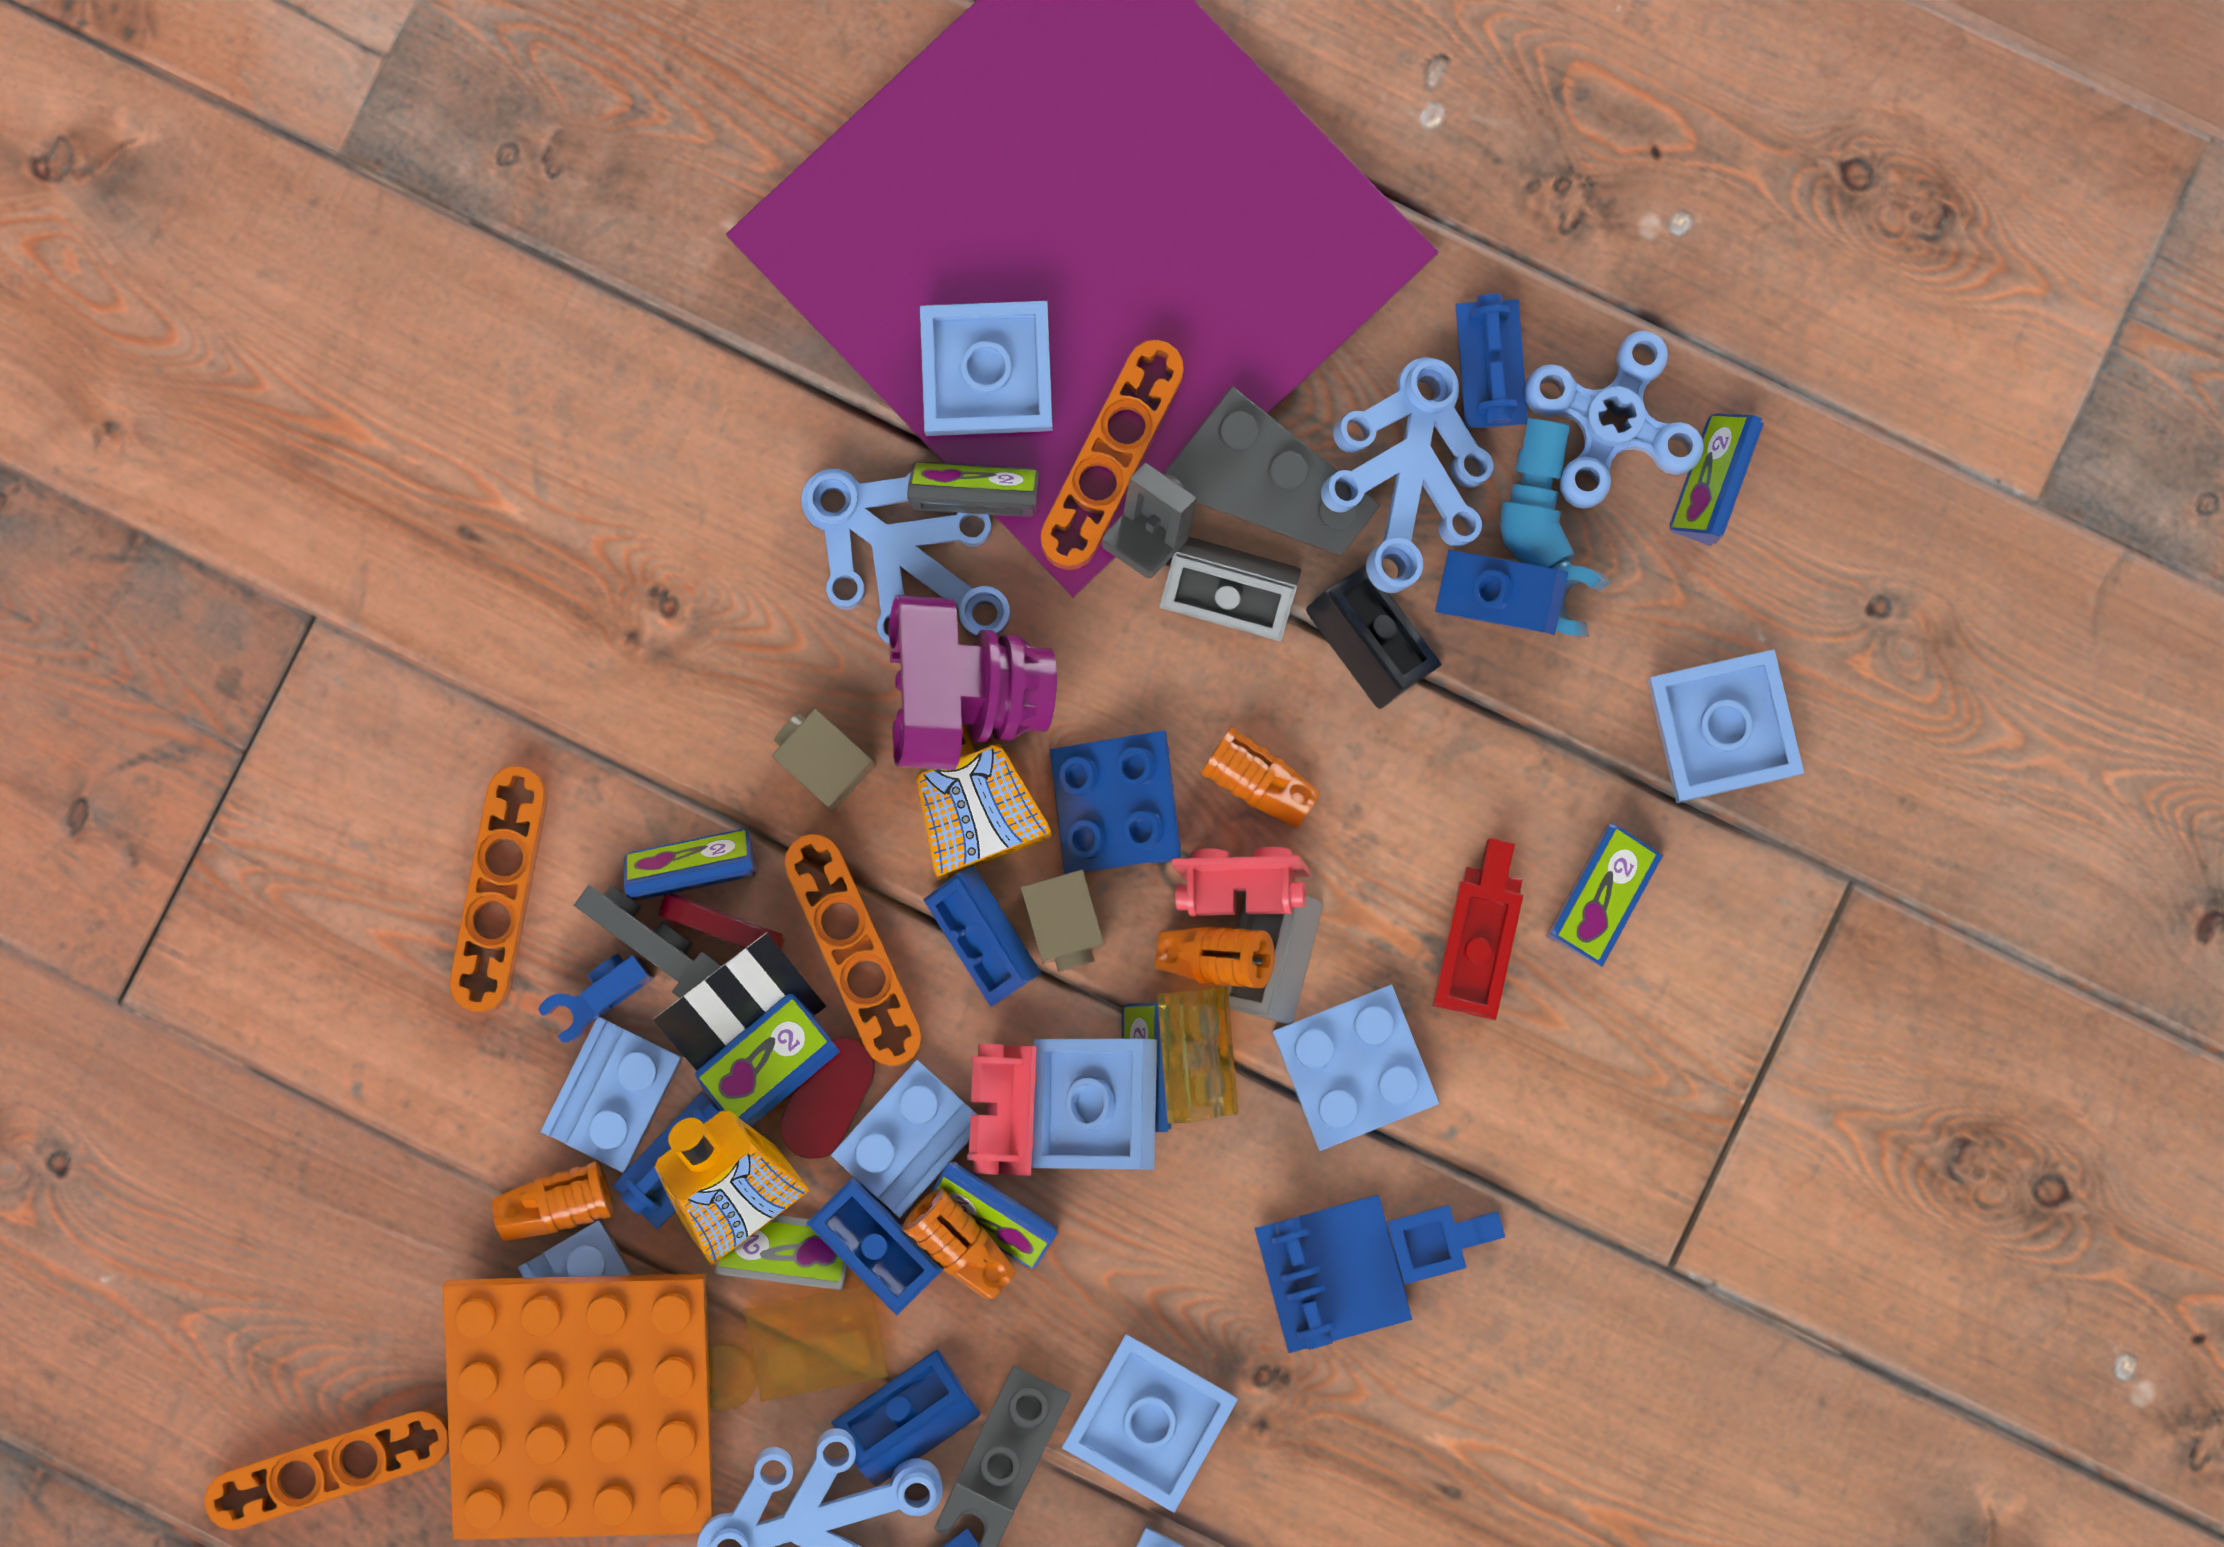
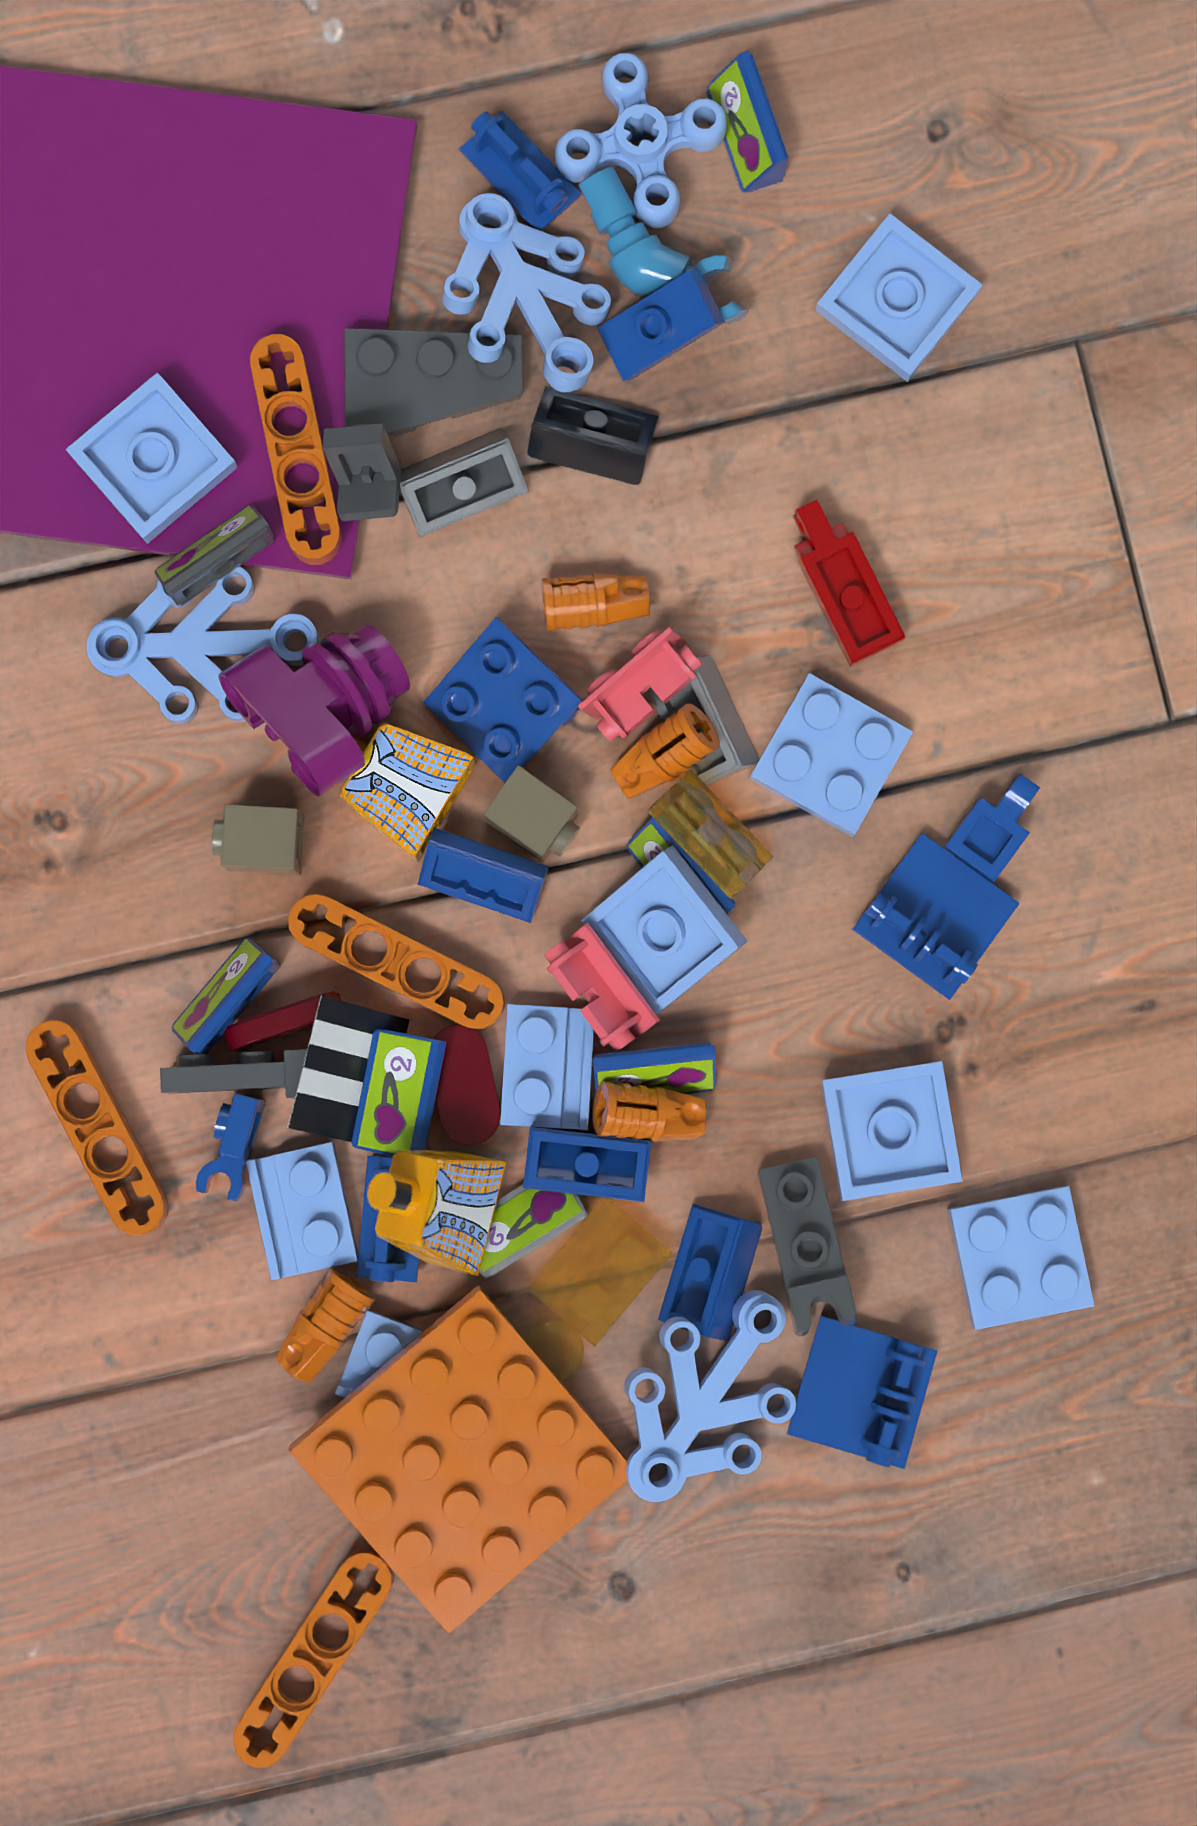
camera: 40 degrees left, 0 degrees up
(1604, 894) = (908, 487): slope -> none

